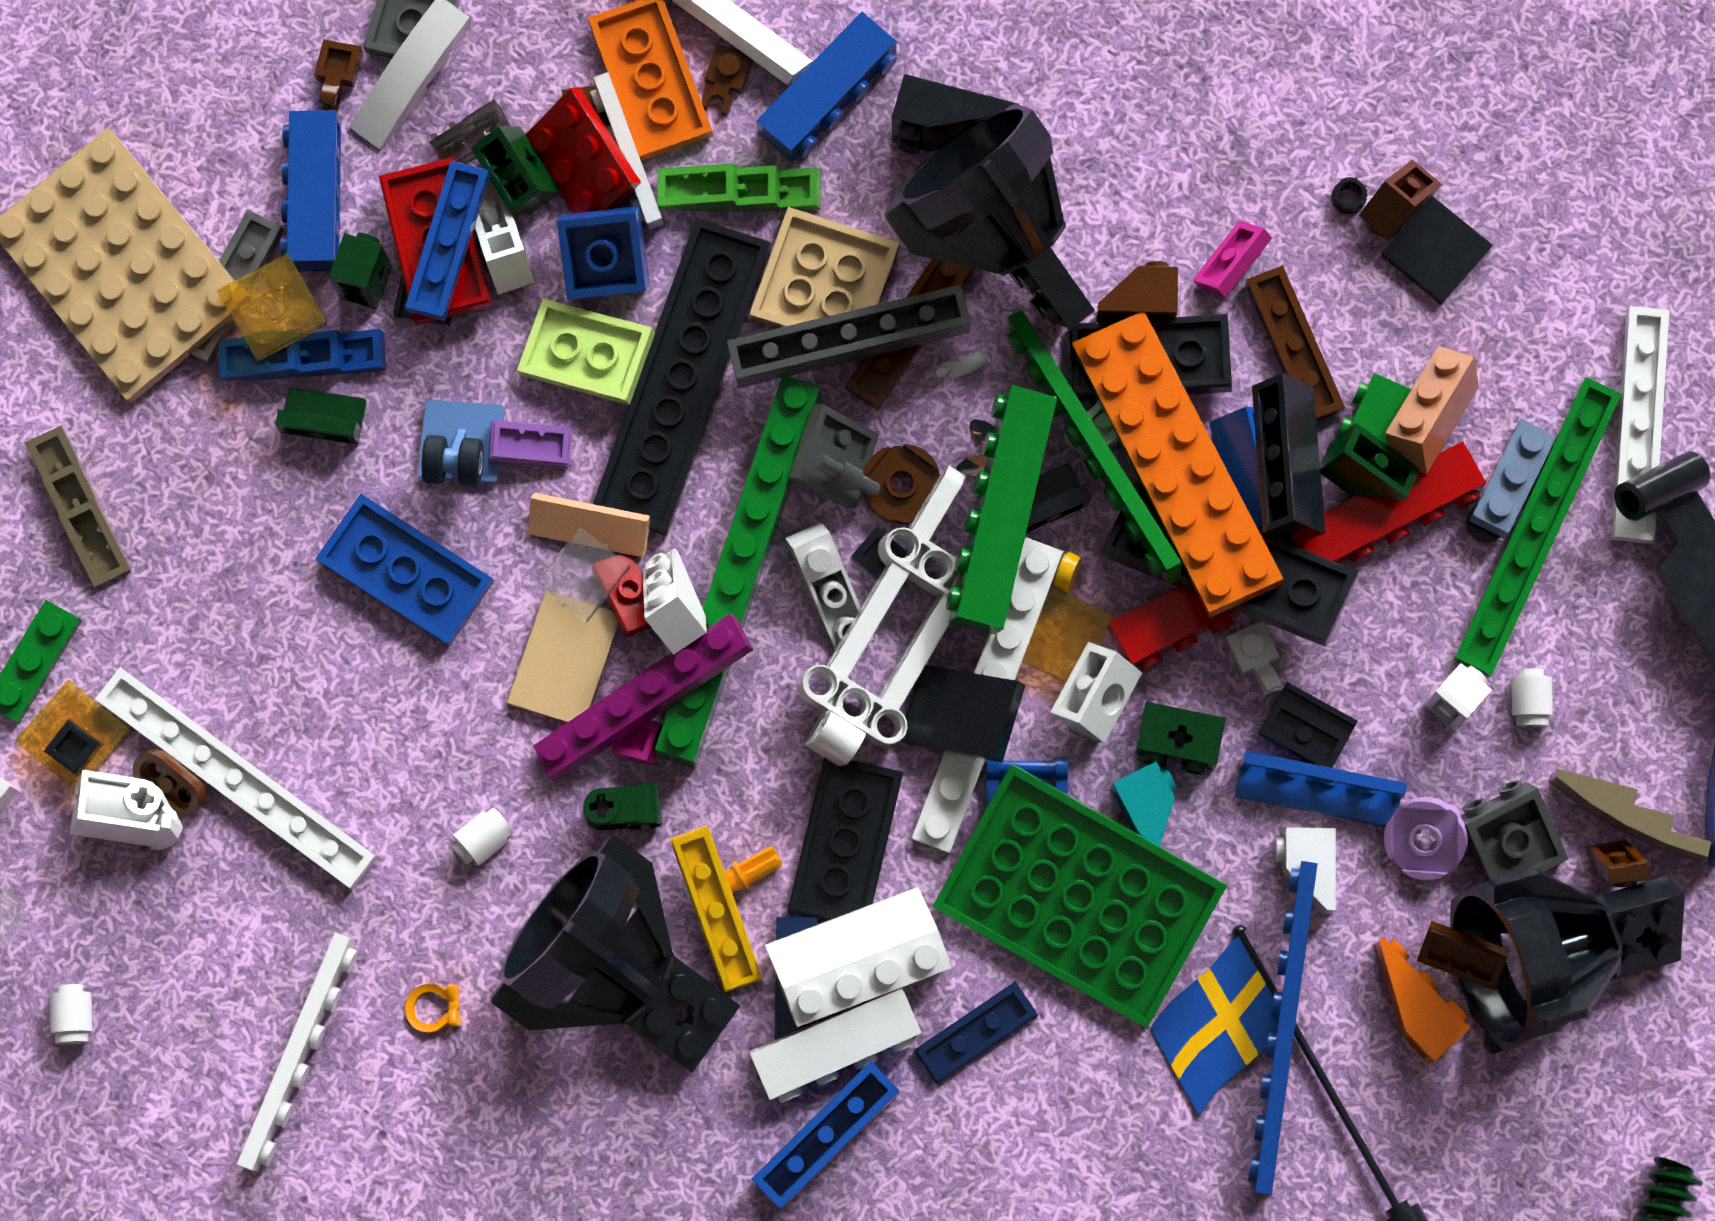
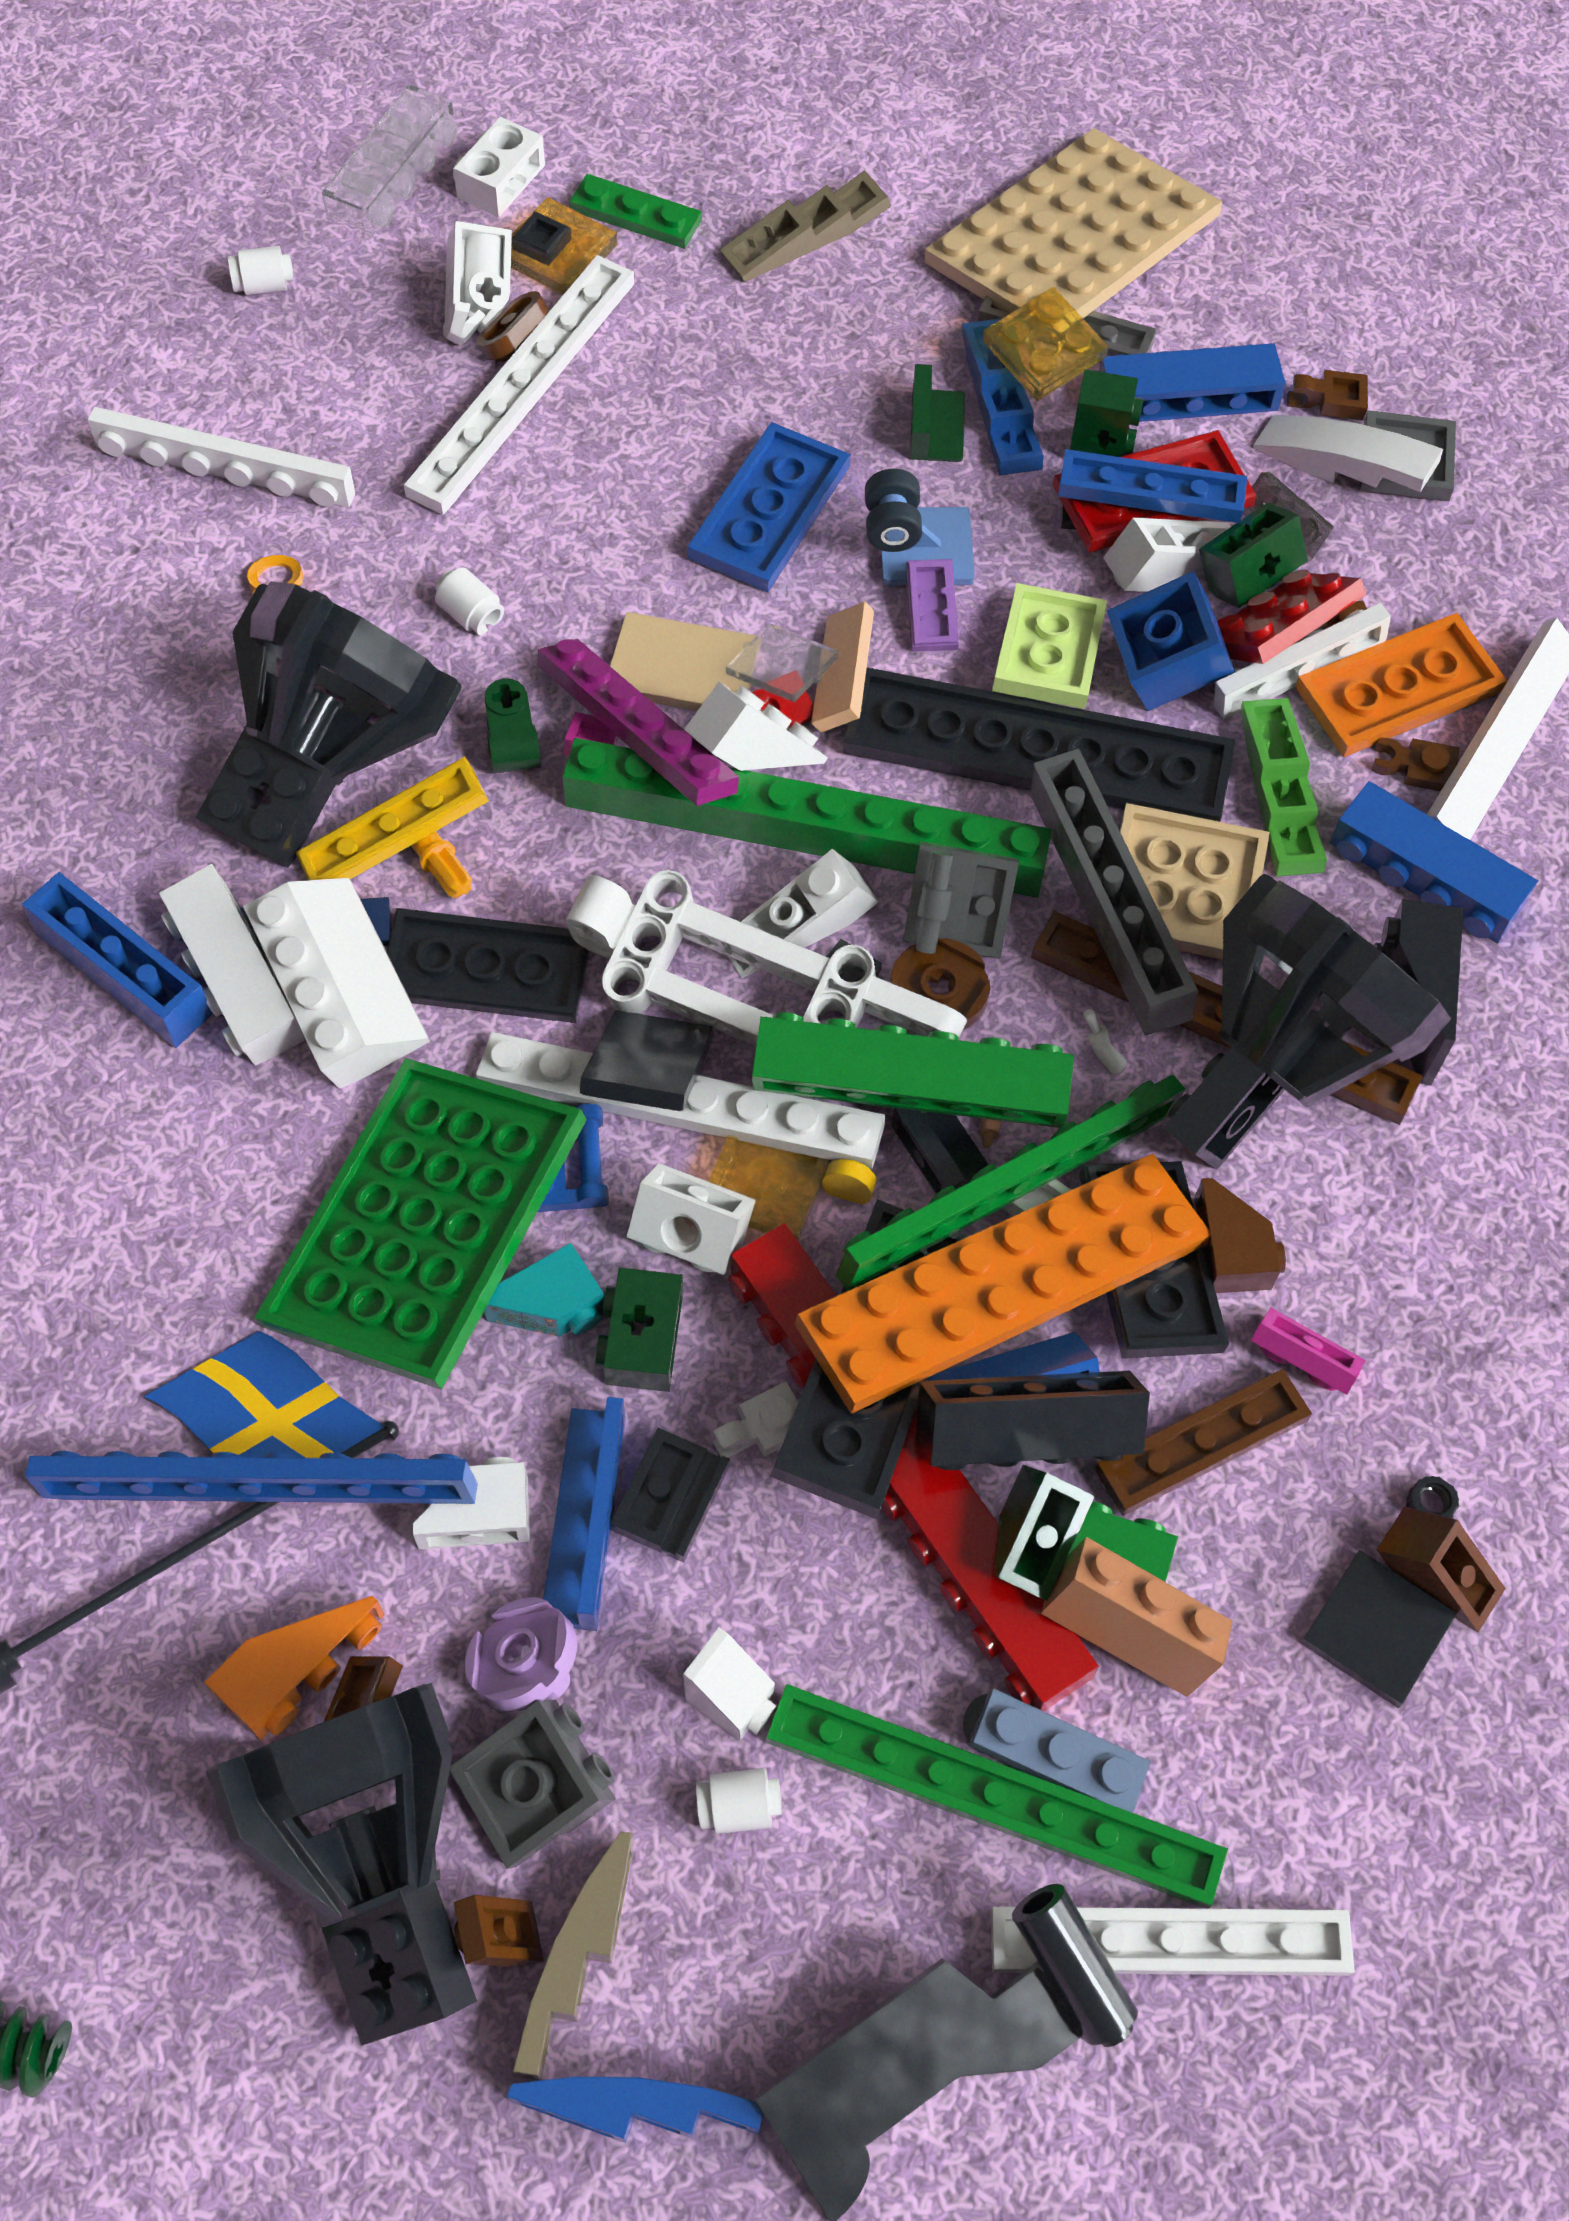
camera: 80 degrees right, 15 degrees down
(976, 1033) = (251, 1126): dark blue tile -> none

